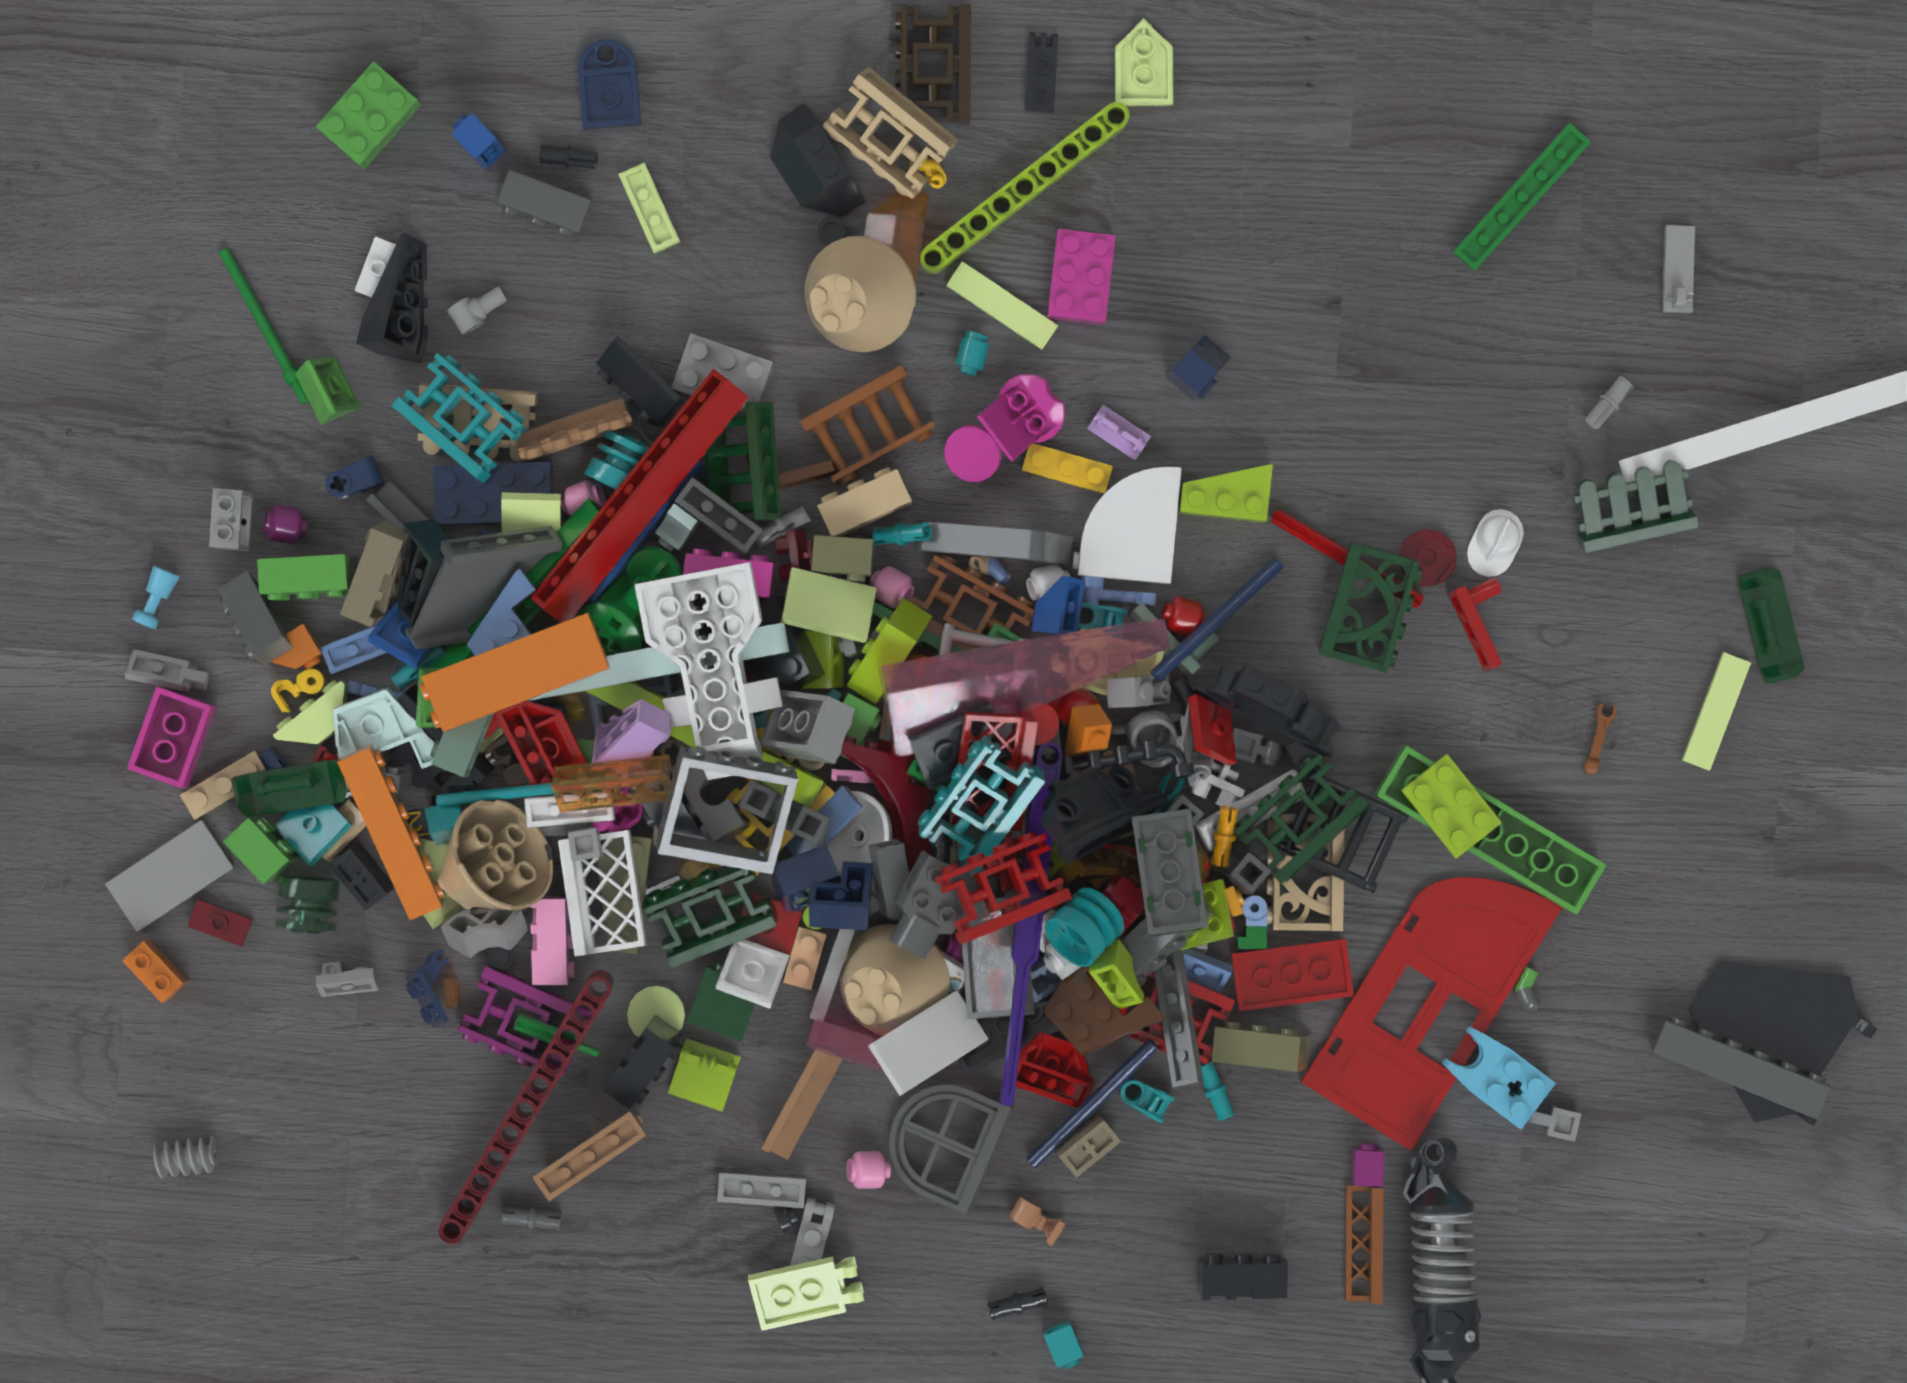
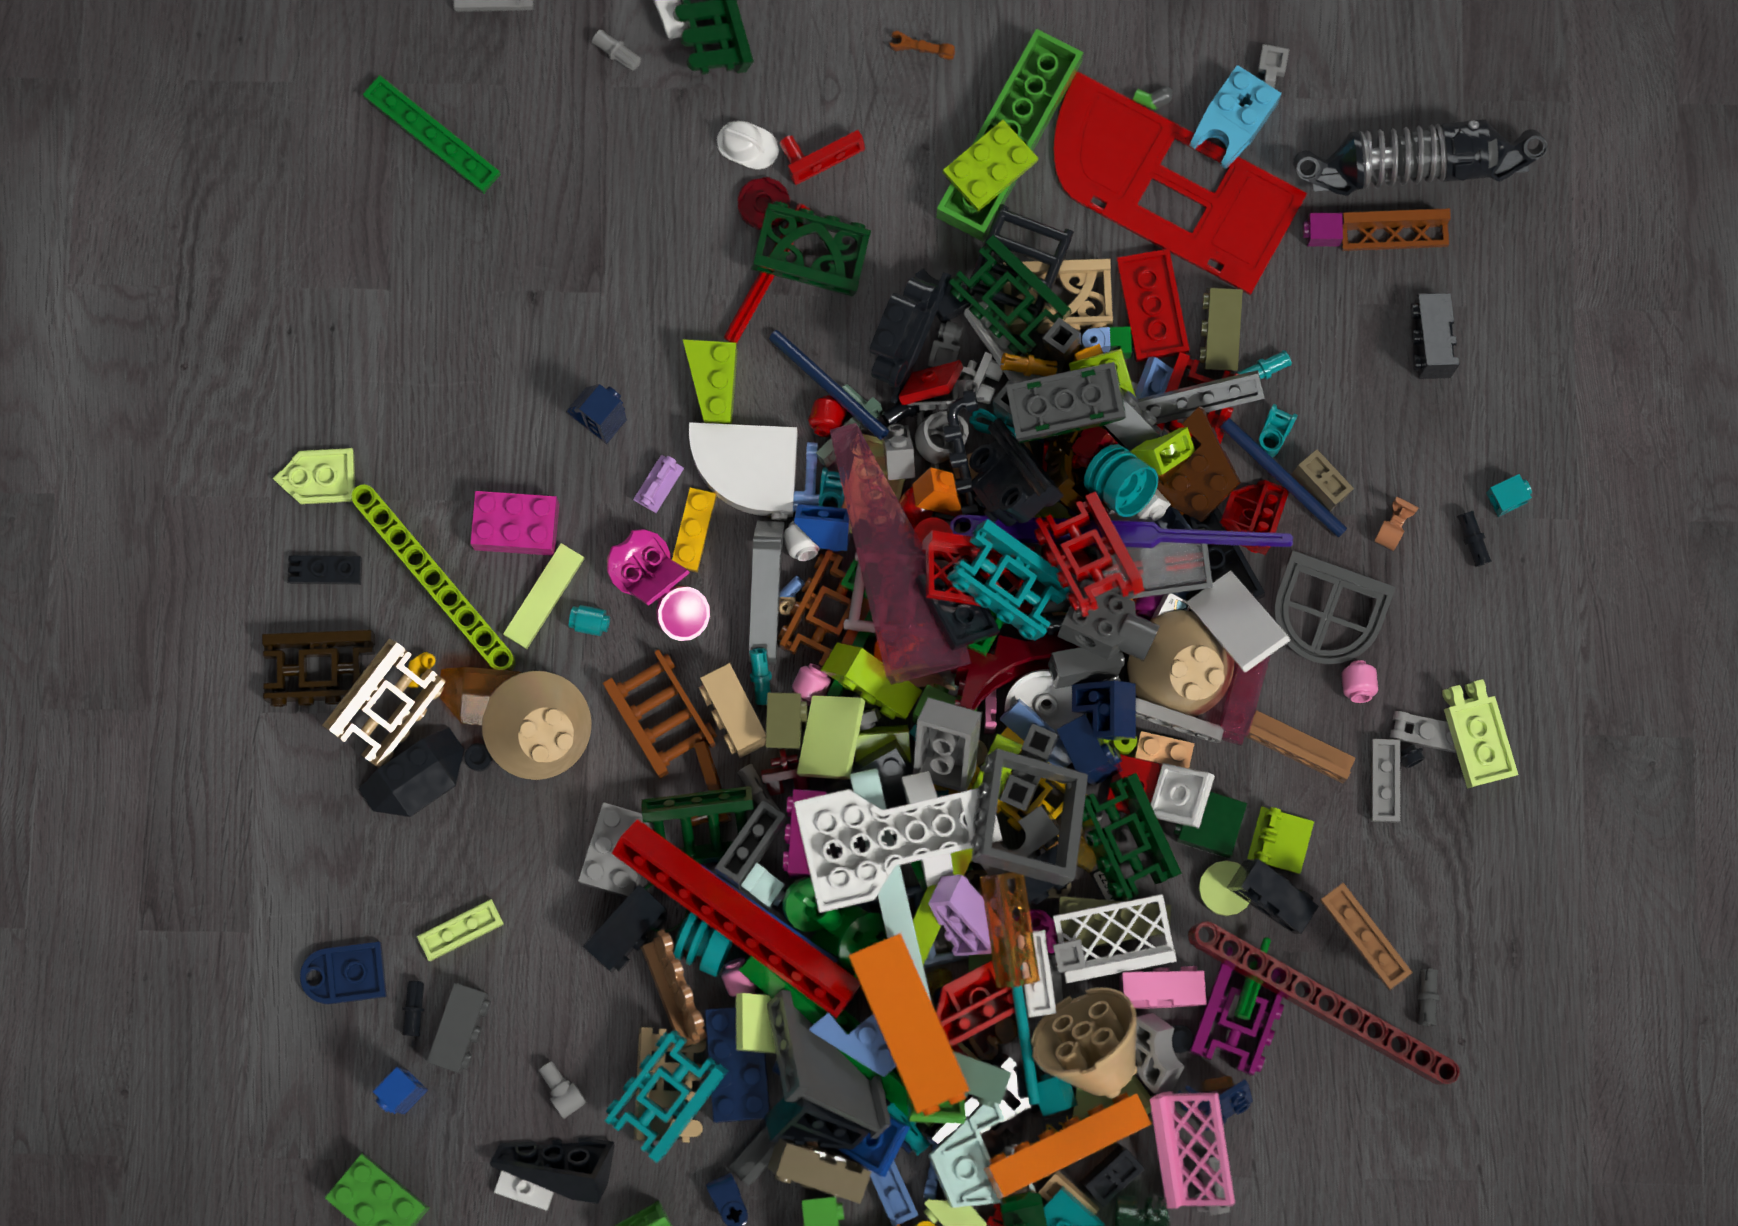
camera: 95 degrees left, 10 degrees down
(382, 941) = (1171, 1146): none -> bright pink fence

